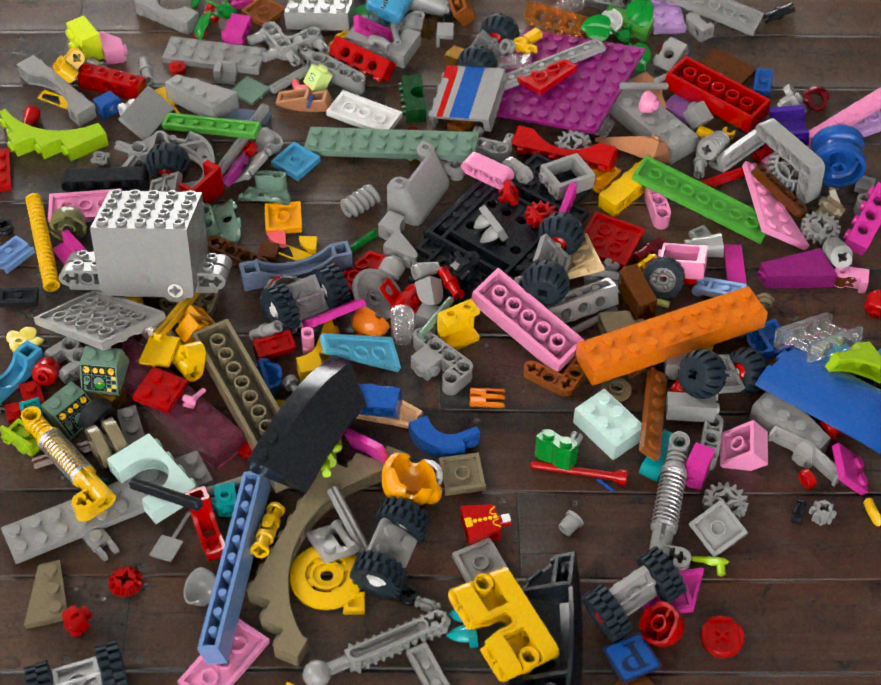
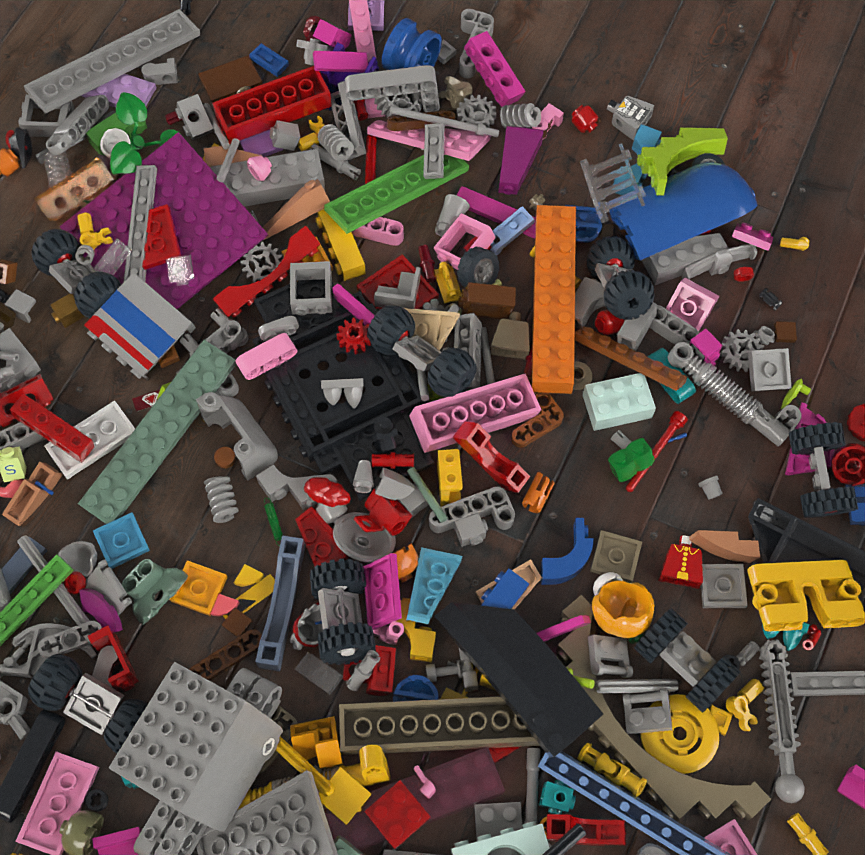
camera: 65 degrees left, 15 degrees up
(201, 153) = (66, 649): none -> light grey beam
(214, 221) = (150, 649): sand green piece -> none
(252, 314) = (319, 673): none -> clear plate
(354, 82) = (52, 428): none -> red brick
(371, 491) = (611, 650): none -> light grey plate
(372, 608) = (739, 704): none -> yellow bar
(399, 253) = (326, 492): none -> red arm
(402, 324) = (417, 529): clear piece -> none
(412, 98) = (114, 387): dark green arch -> none
(467, 653) = (814, 635): none -> red arm
(491, 341) = (476, 443): none -> red arch
(509, 193) = (309, 349): red tile -> none
(518, 549) = (726, 545): none -> nougat slope
(527, 95) = (180, 269): none -> clear brick
(606, 242) = (404, 296): none -> light grey panel
(699, 232) = (430, 212): light grey tile -> none
(751, 204) = (434, 151): none -> light grey tile
(754, 517) = (765, 334): none -> light grey plate
(772, 535) = (785, 332): none -> reddish brown tile
(786, 112) = (340, 61): none -> dark pink tile
(803, 232) = (479, 129): none -> light grey bar
(814, 104) = (331, 34): none -> dark pink brick
(822, 512) = (782, 281): light grey gear -> none

